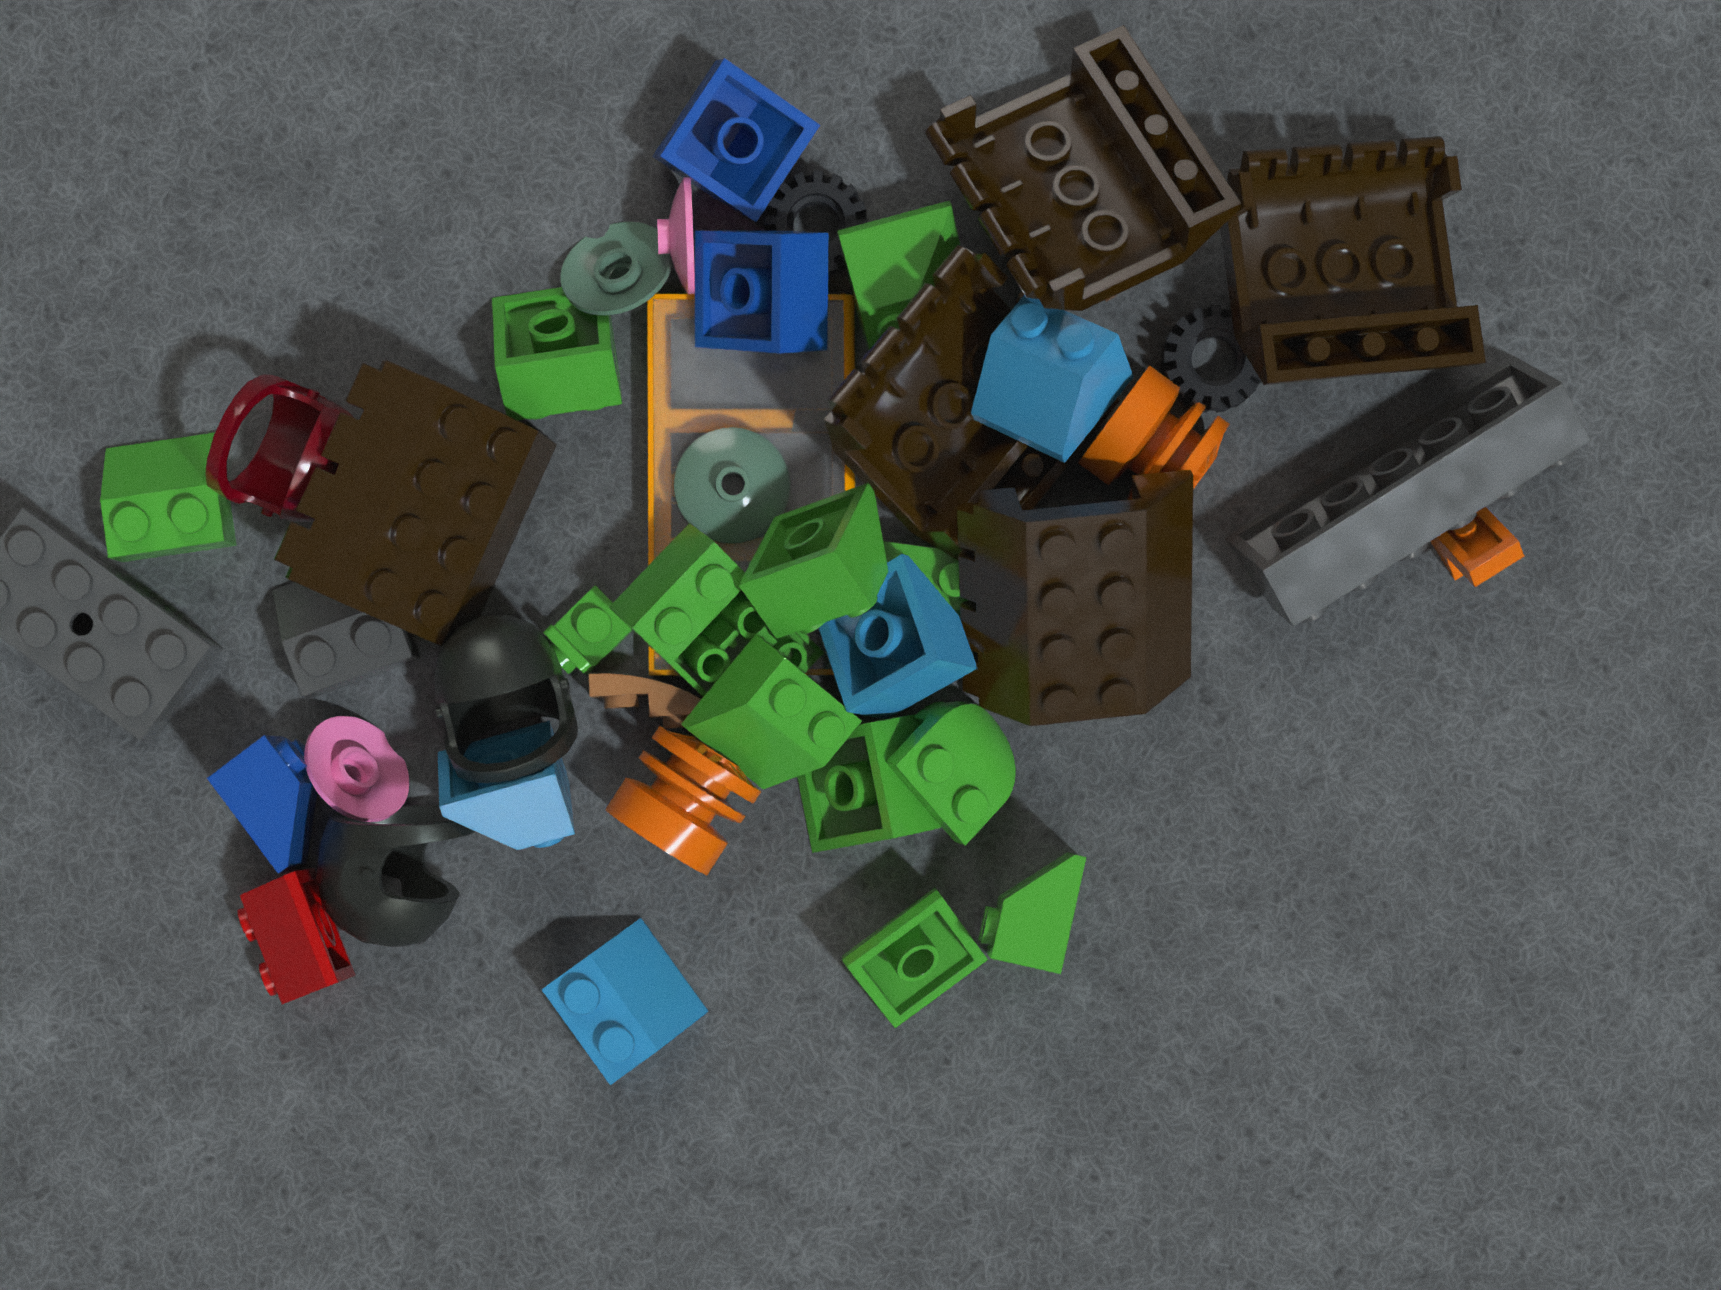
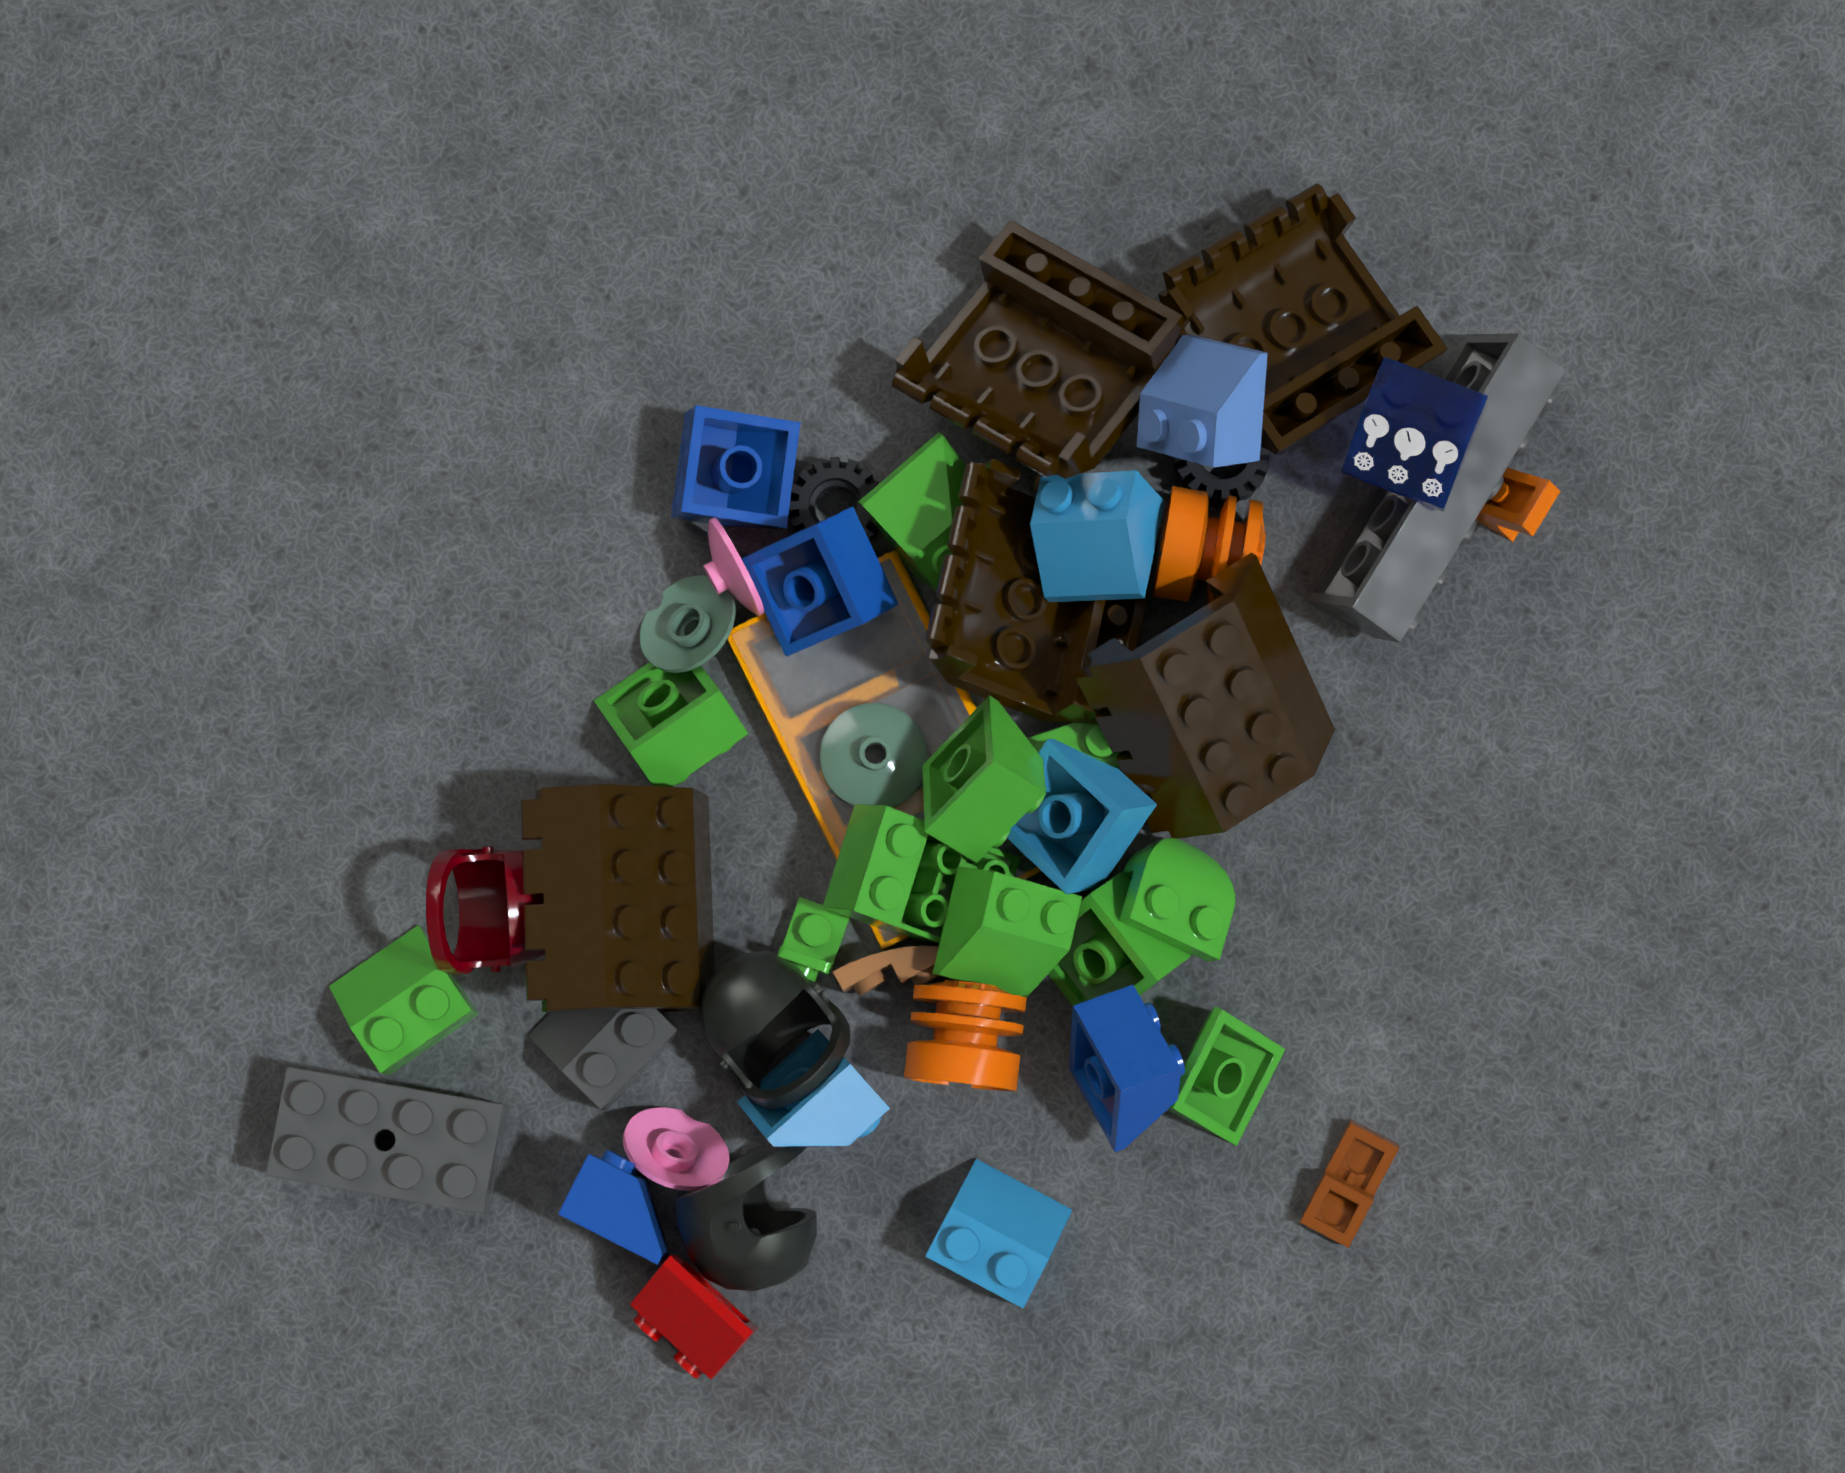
camera: 20 degrees left, 5 degrees down
(822, 900) = (1123, 1063): none -> blue slope
(984, 1117) = (1349, 1183): none -> dark orange slope
(1035, 916) = (1309, 989): bright green slope -> none
(1219, 301) = (1205, 403): none -> medium blue slope
(1408, 431) = (1414, 433): none -> clear blue slope

